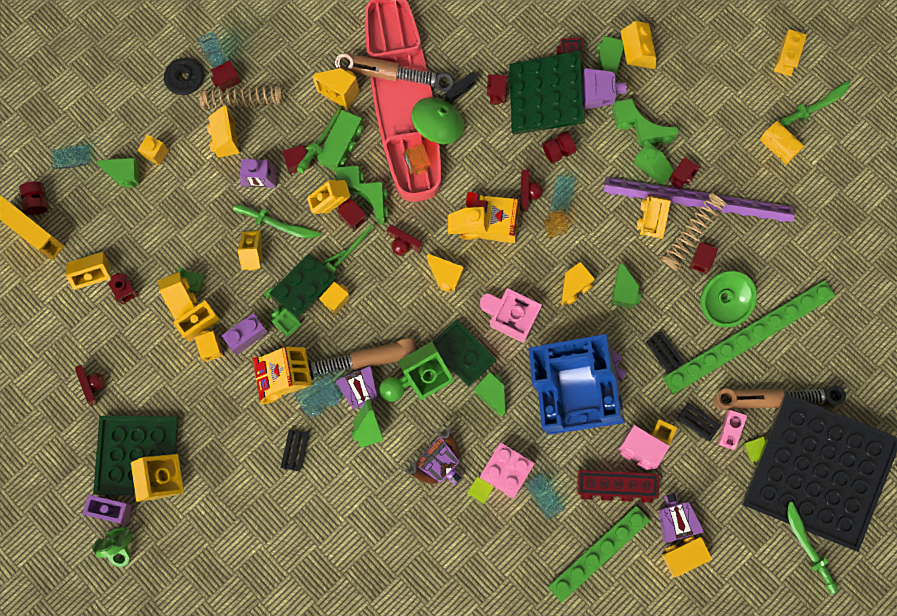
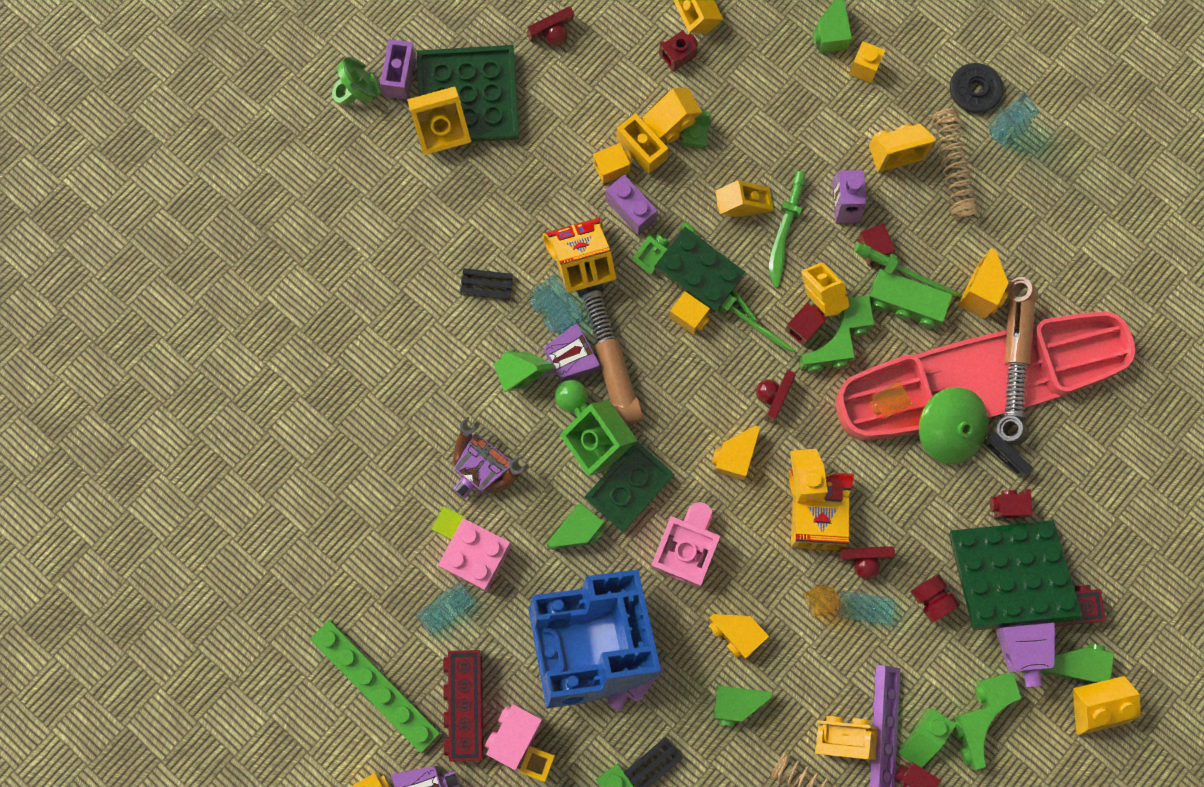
camera: 80 degrees right, 0 degrees up
(225, 76) = (982, 139): dark red brick -> none

